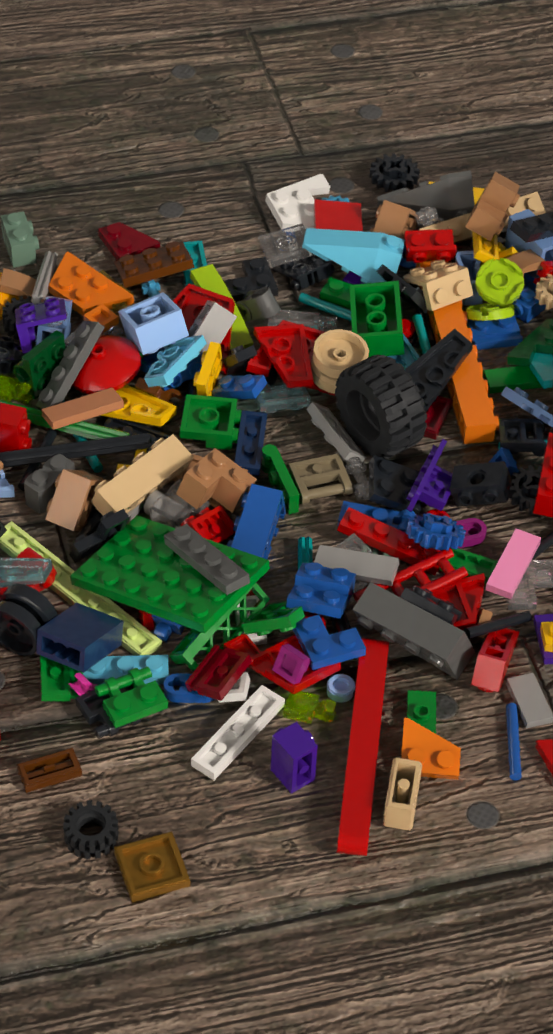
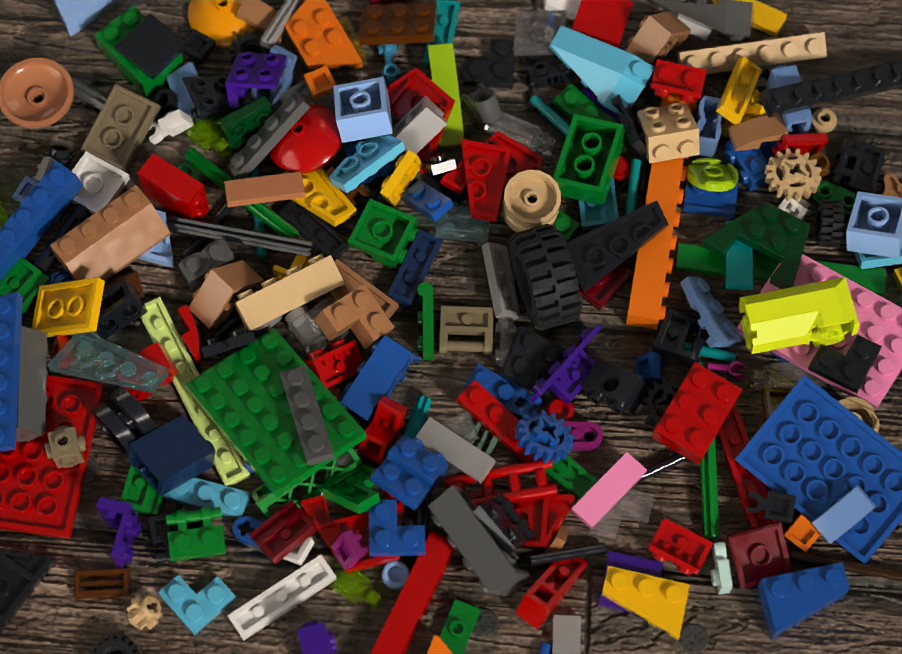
camera: 20 degrees right, 20 degrees up
(48, 701) = (125, 519): none -> dark purple bracket
(54, 536) = (191, 338): none -> red slope
(82, 685) = (157, 507): dark pink hand -> none
(105, 777) = (144, 611): none -> tan gear
(152, 767) = (193, 608): none -> medium azure plate
(281, 558) = (383, 430): none -> red brick
(428, 216) = (693, 39): clear bar -> none
(489, 212) = (758, 54): medium nougat brick -> none
(499, 281) = (730, 148): lime tile -> none

